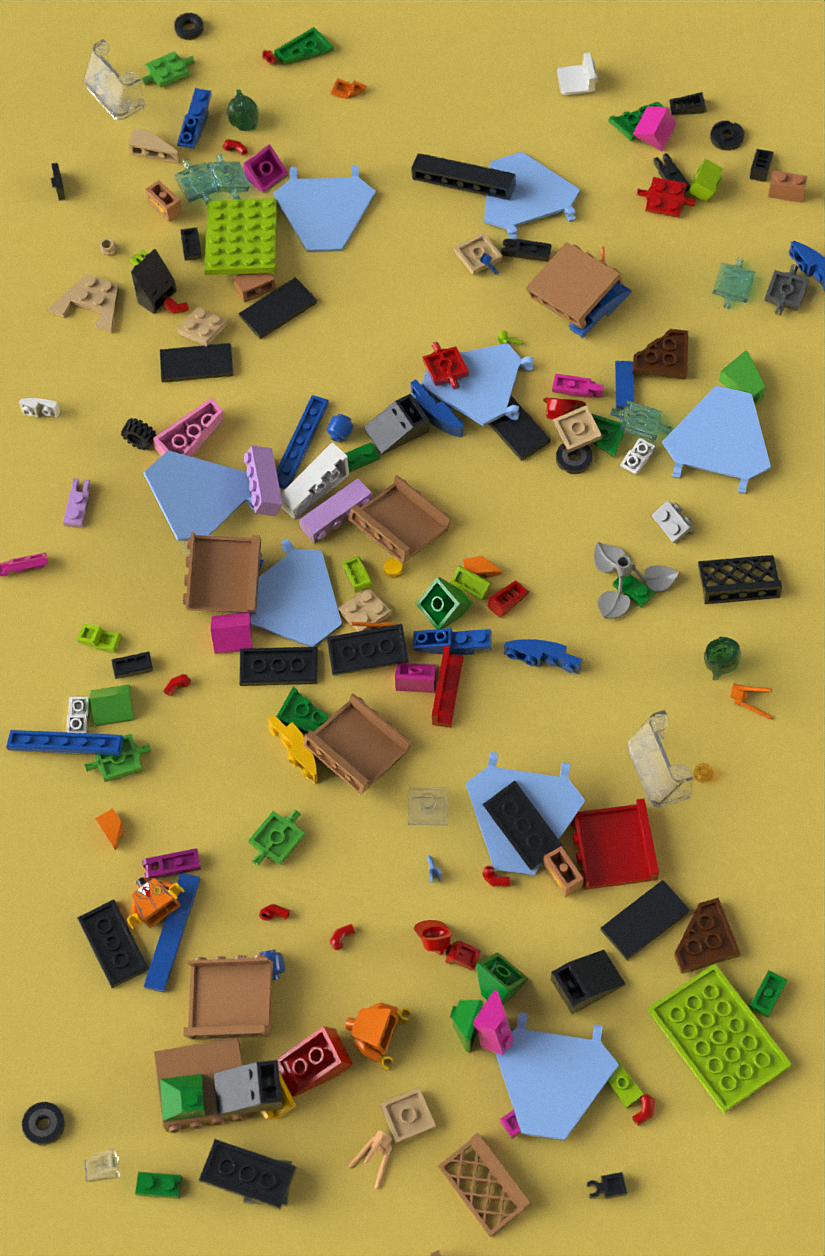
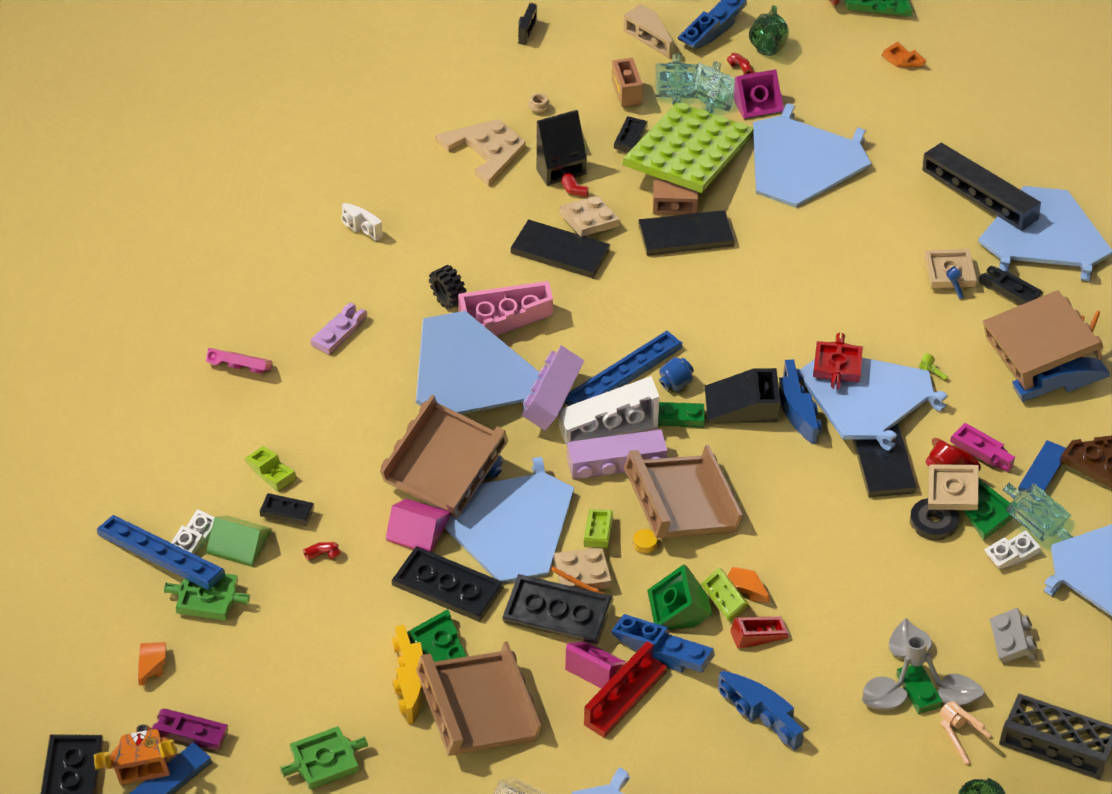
camera: 25 degrees right, 15 degrees down
(669, 598) = (956, 717): none -> light nougat plant

